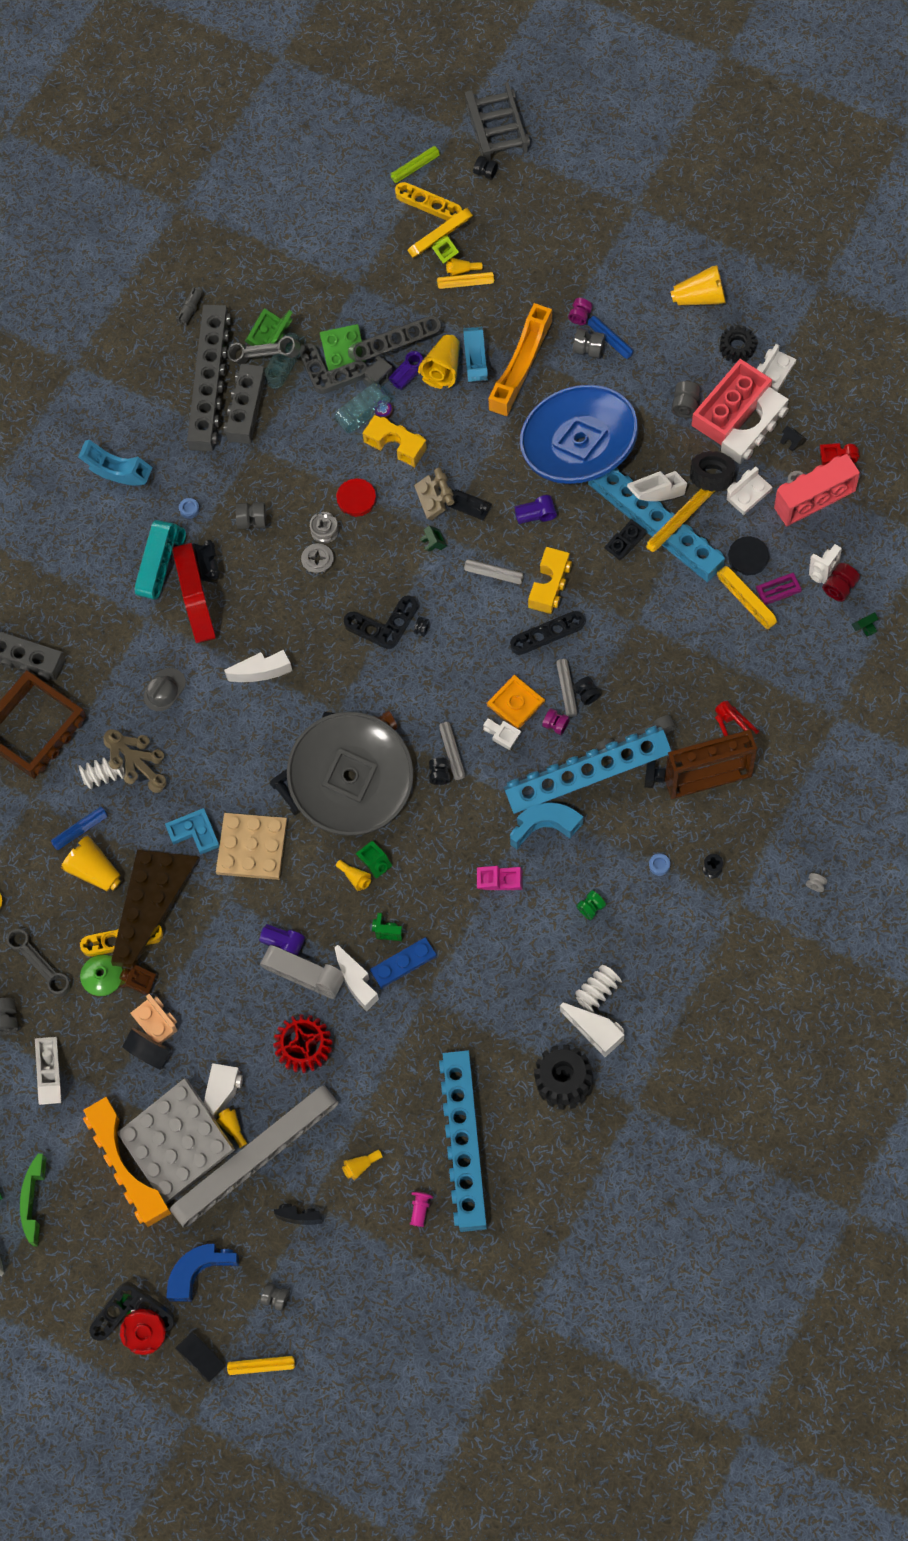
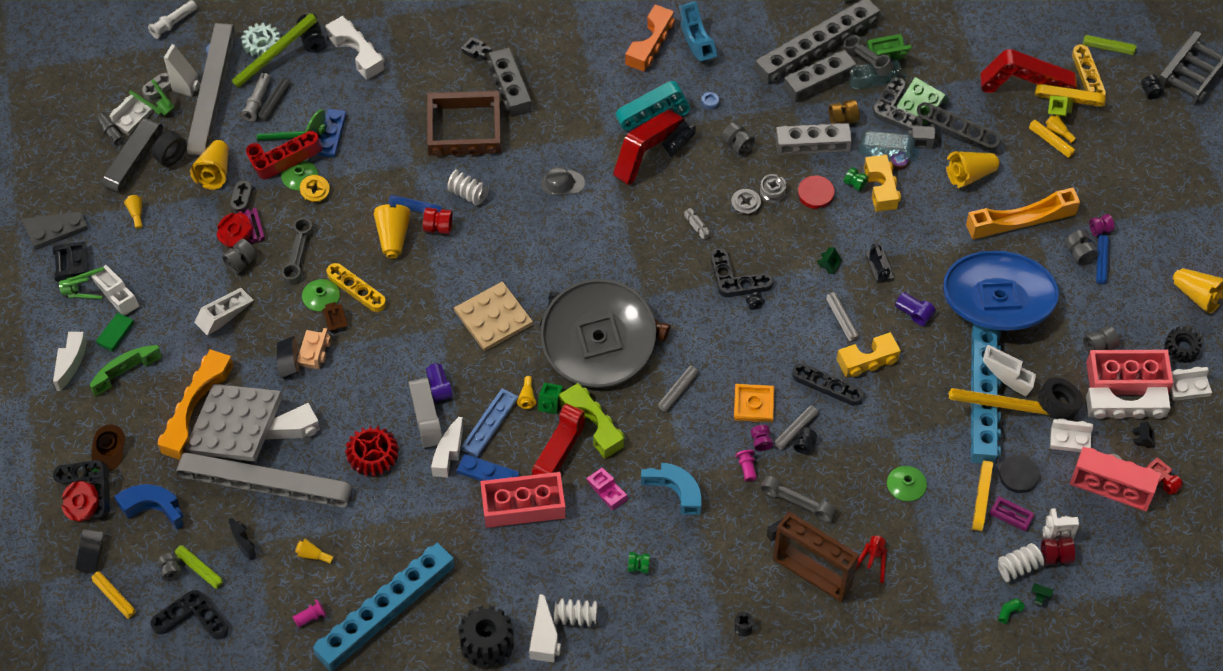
camera: 45 degrees right, 10 degrees down
(72, 488) = (641, 53): none -> orange arch
(106, 1268) = (108, 445): none -> reddish brown piece
(116, 741) = (493, 198): dark tan plant -> none
(116, 820) = (437, 220): none -> red wheel
(150, 895) = (400, 280): dark brown wing -> none
(196, 826) = (476, 273): dark azure plate -> none
(229, 1121) = (276, 447): yellow cone -> none
(259, 668) = (629, 225): white slope -> none
(294, 1271) = (199, 567): none -> lime axle
(301, 414) = (848, 108): none -> pearl gold wheel
(304, 613) = (697, 223): none -> light grey axle
(314, 454) = (813, 139): none -> light grey brick
(329, 1309) = (188, 609): none -> black beam
(355, 926) = (489, 423): none -> medium blue tile
(373, 456) = (856, 179): none -> green wheel
(388, 245) = (1026, 67): none -> red beam
(390, 931) = (502, 442): green bracket -> none
(400, 839) = (607, 438): none -> lime arch
(406, 371) = (941, 152): dark purple piece -> none
(427, 884) = (561, 442): none -> red beam
(429, 494) = (863, 235): dark tan plate -> none
(439, 771) = (653, 390): black wheel -> none
(457, 953) = (523, 499): none -> coral brick
(475, 354) = (998, 184): dark azure arch -> none
(504, 734) = (721, 411): white plate -> none
(568, 750) = (746, 461): none -> dark pink pin
(626, 540) = (943, 382): black slope -> none
(658, 749) = (676, 455): dark azure brick -> none
(659, 864) = (713, 588): medium blue tile -> none
(684, 652) = (906, 490): none -> bright green dish
(828, 617) = (1019, 561): none -> white piece
(857, 657) = (1007, 608): none -> green arm

